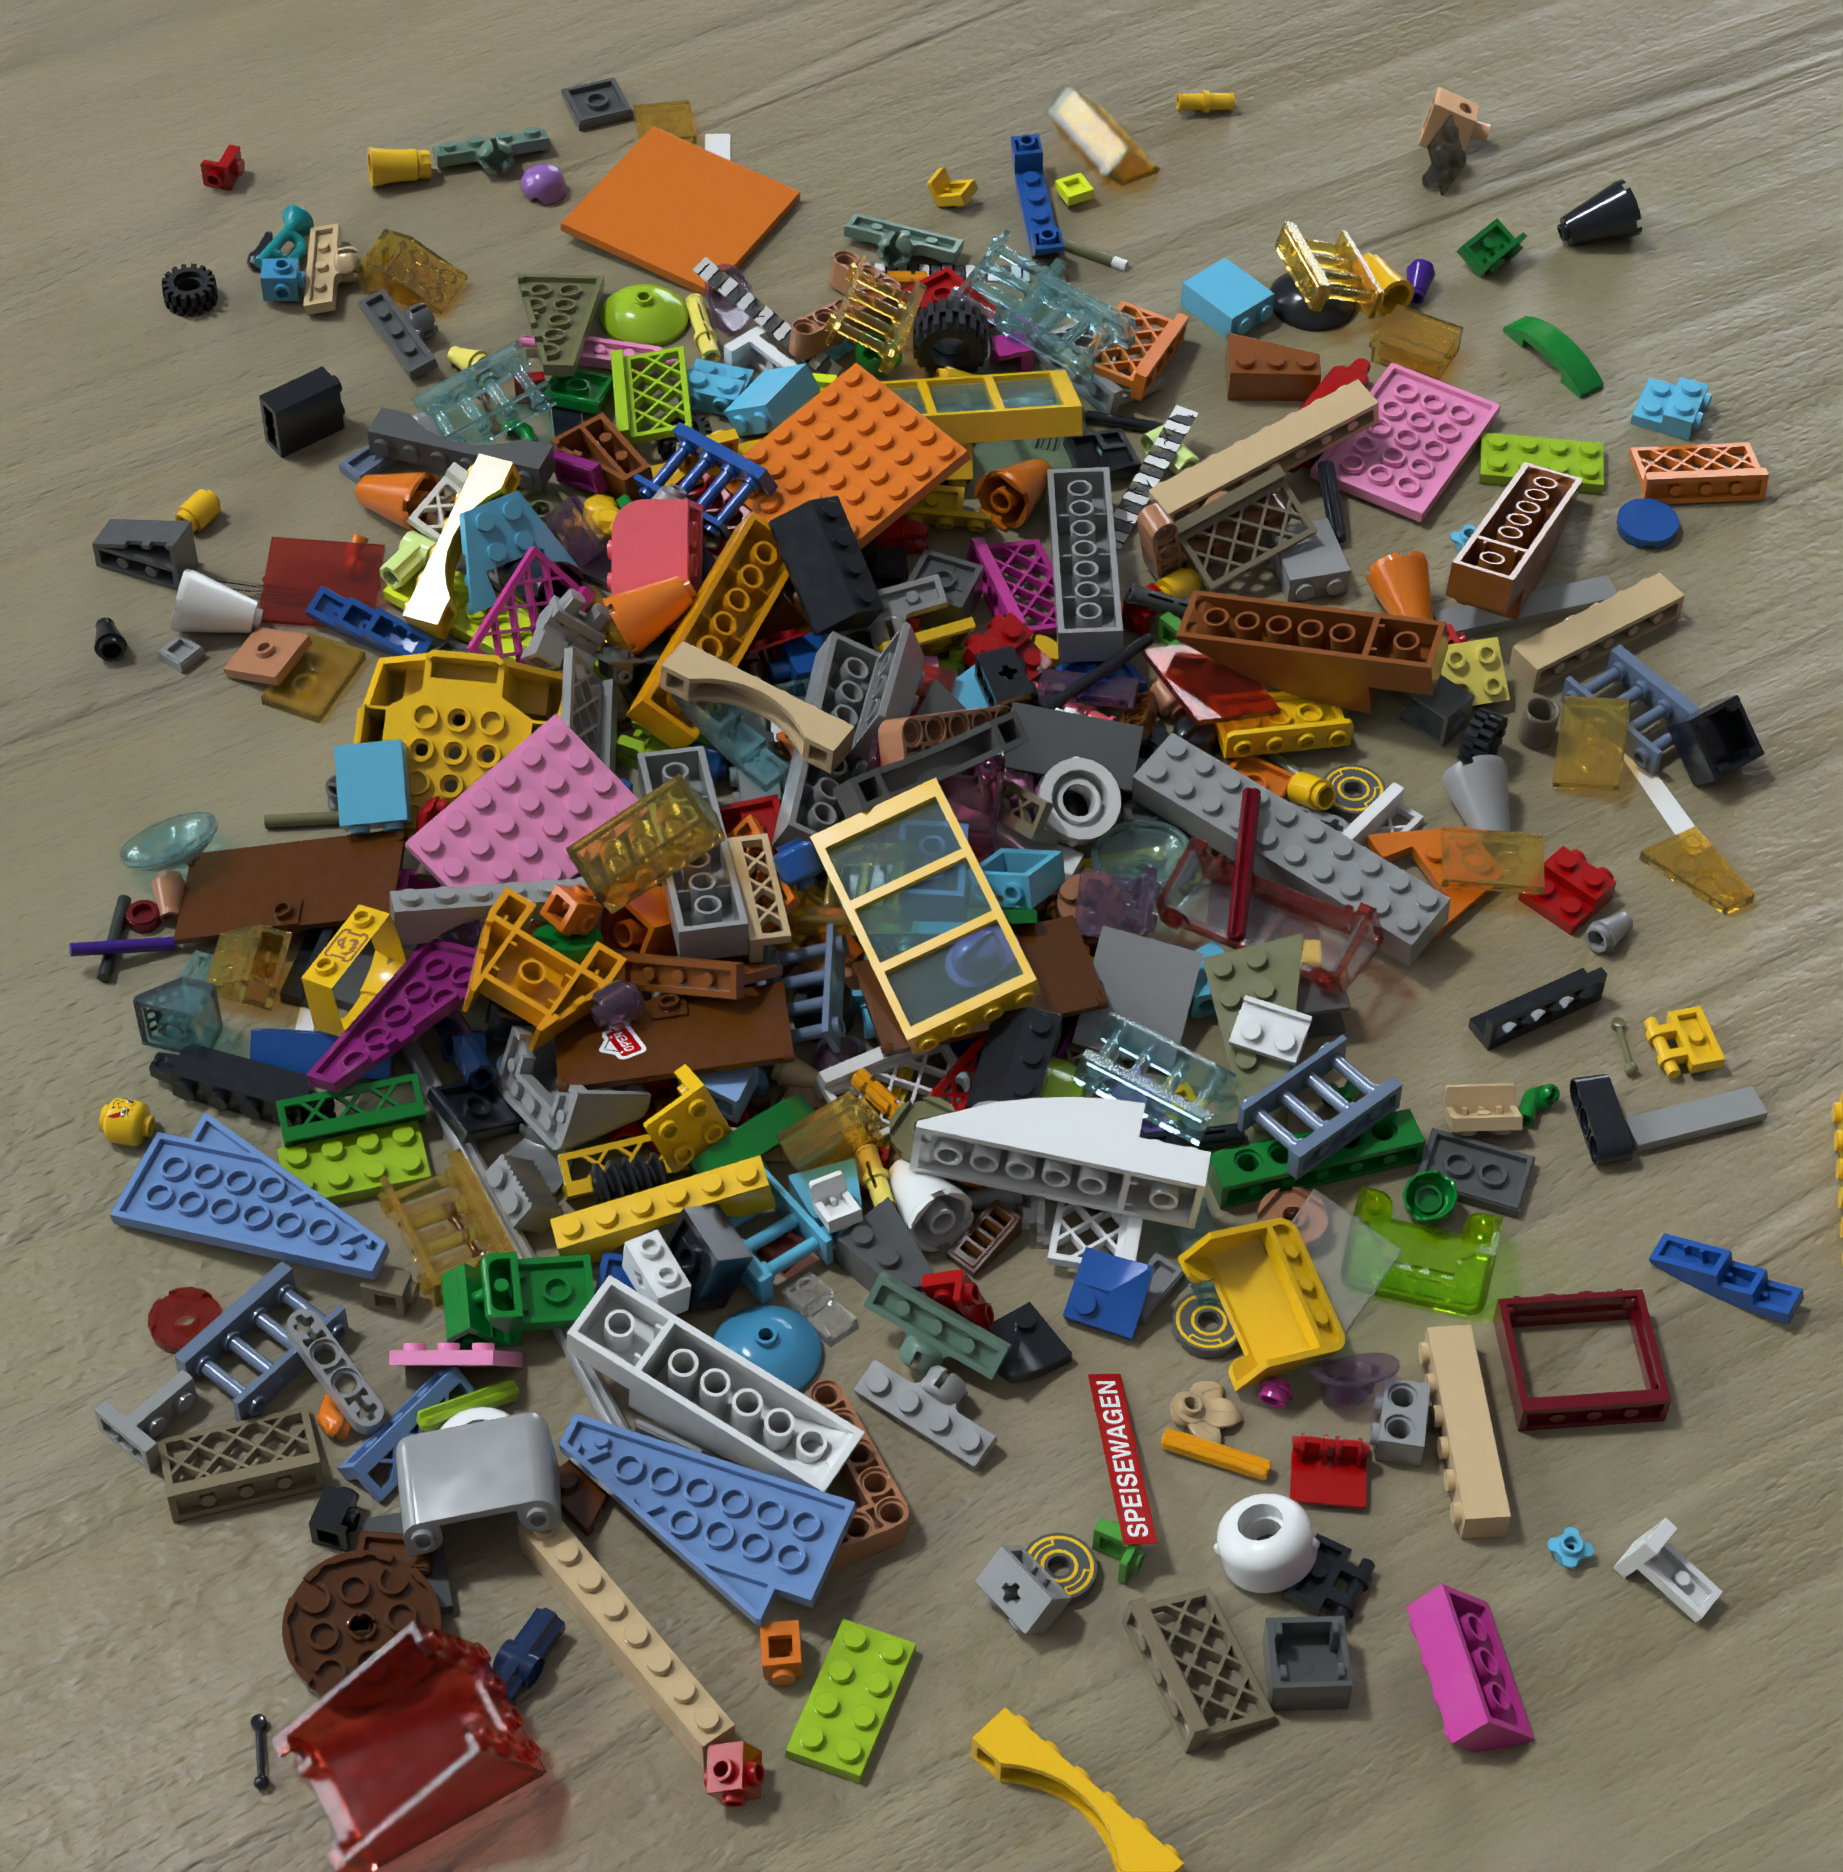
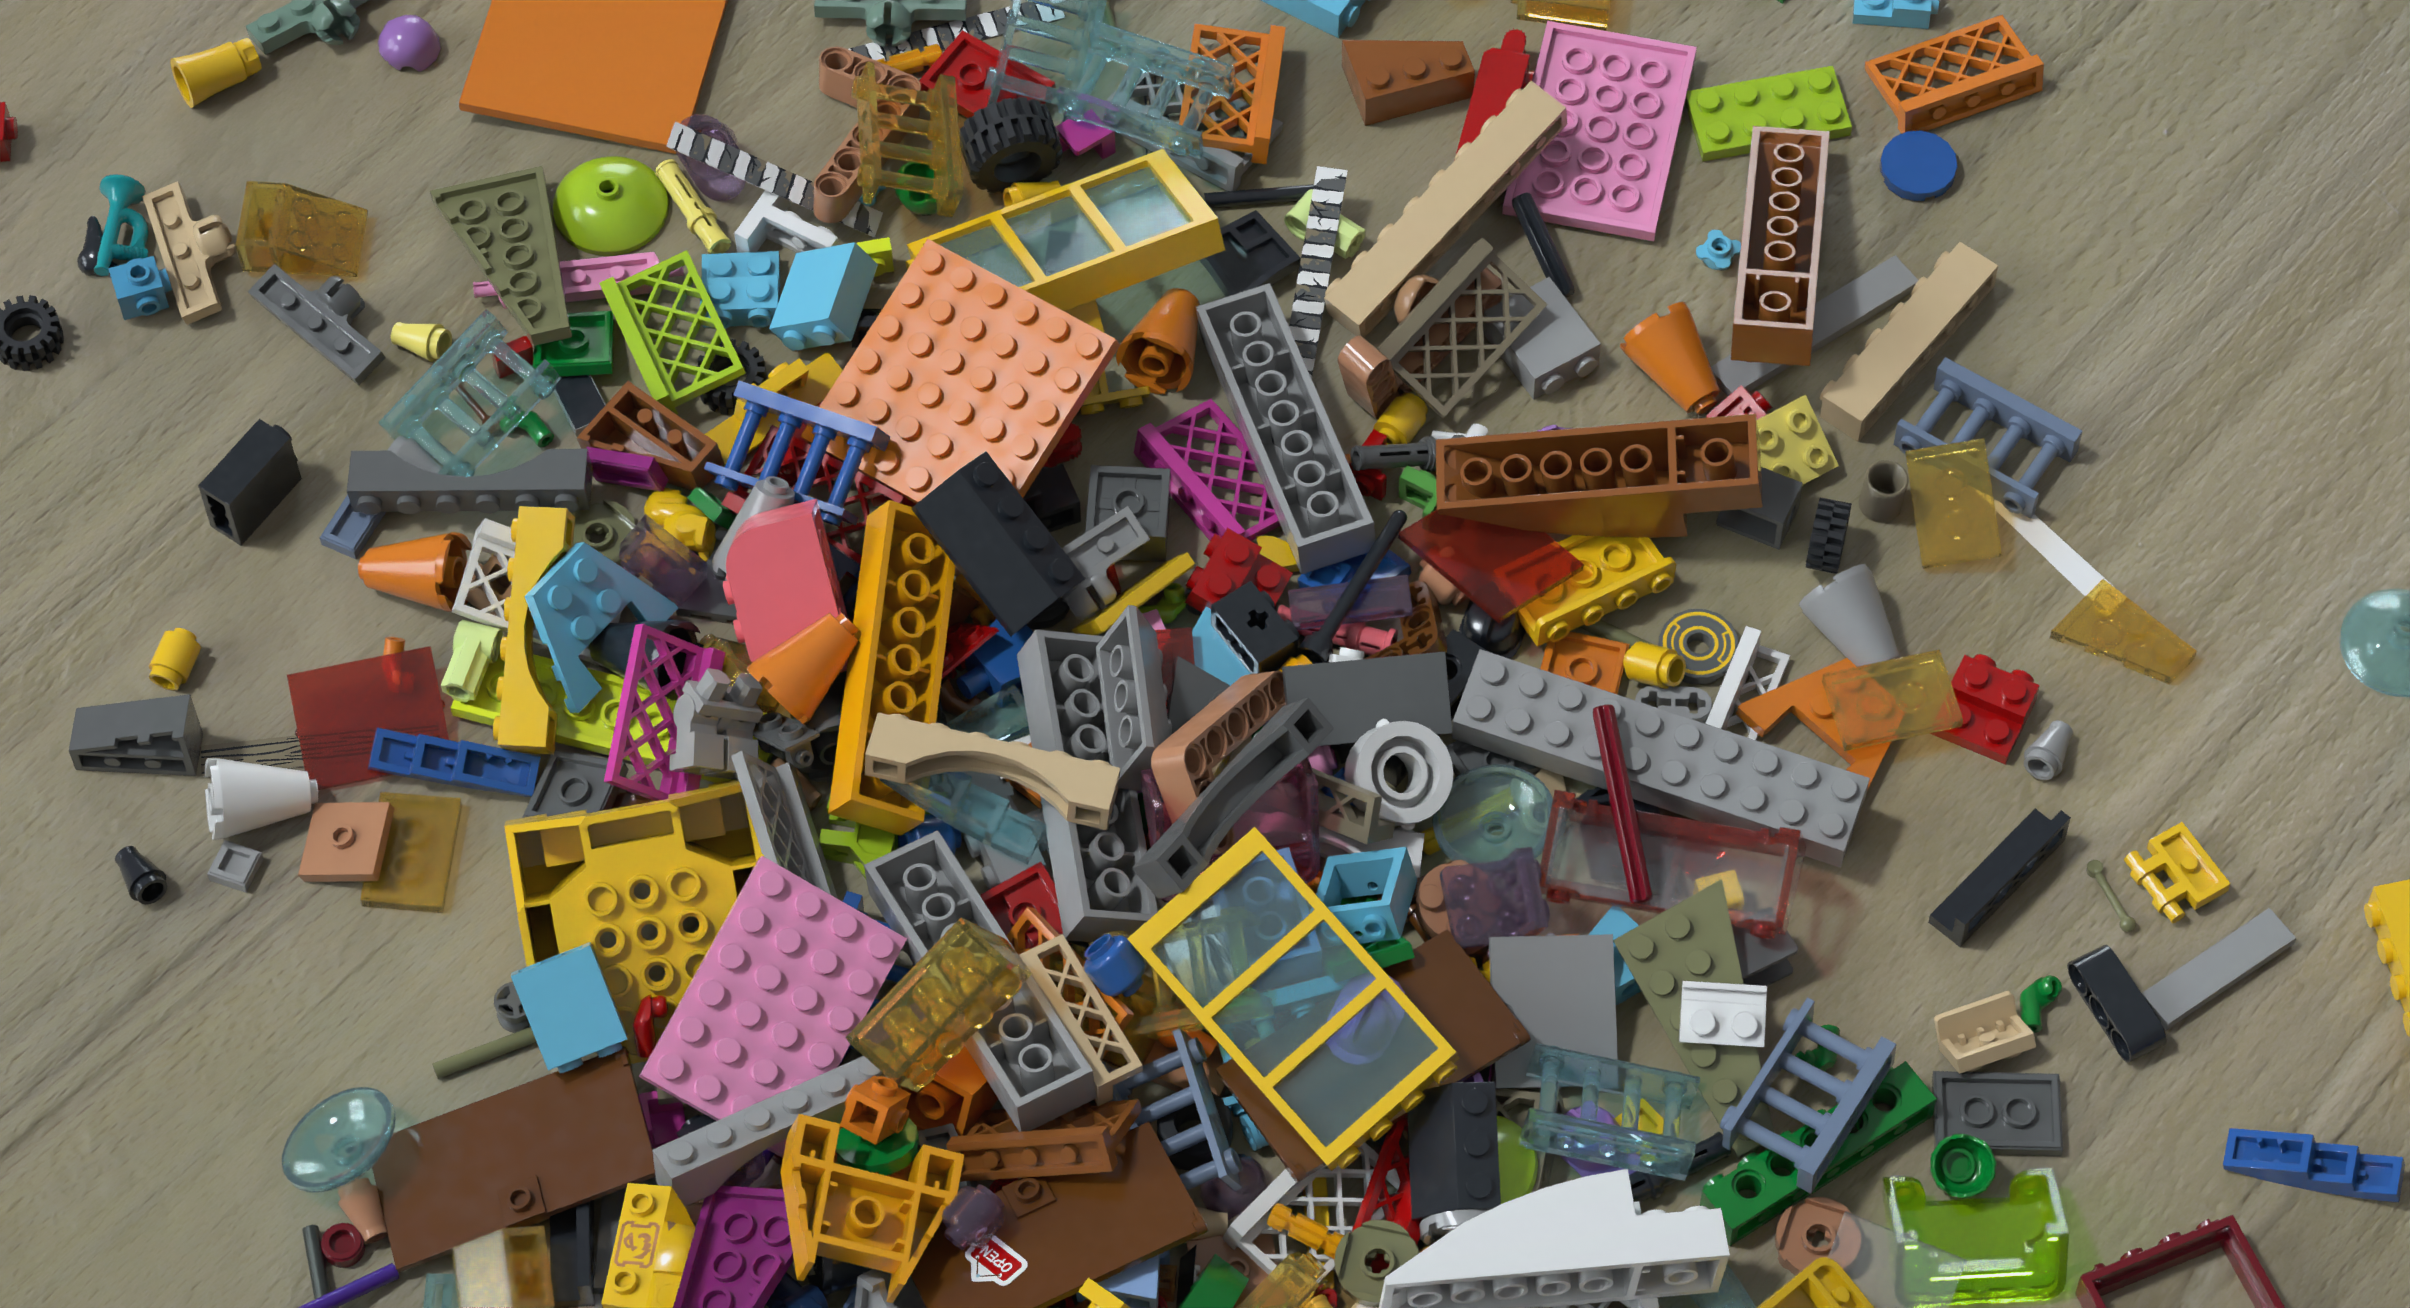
camera: 15 degrees left, 10 degrees up
(1715, 740) = (2095, 460): black container -> none

